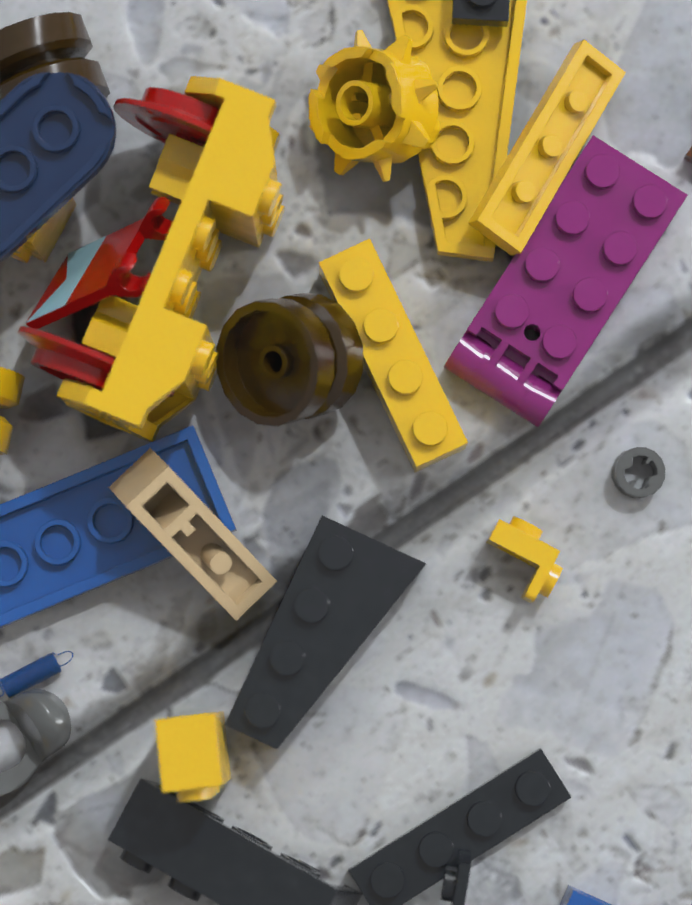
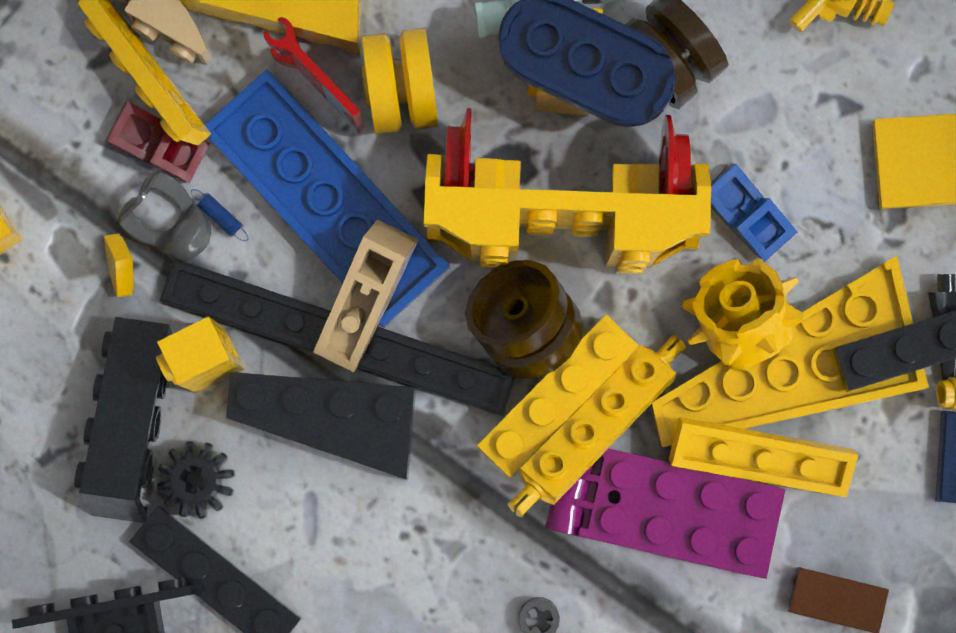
camera: 70 degrees right, 0 degrees up
(45, 814) = (119, 264): none -> yellow tile
(101, 269) = (538, 151): red flag -> none
(198, 619) = (302, 324): none -> black tile
(264, 58) = (749, 214): none -> blue slope
(336, 833) = (182, 488): none -> black gear
(443, 323) = (596, 425): none -> yellow plate
(523, 543) = (452, 548): yellow bracket -> none

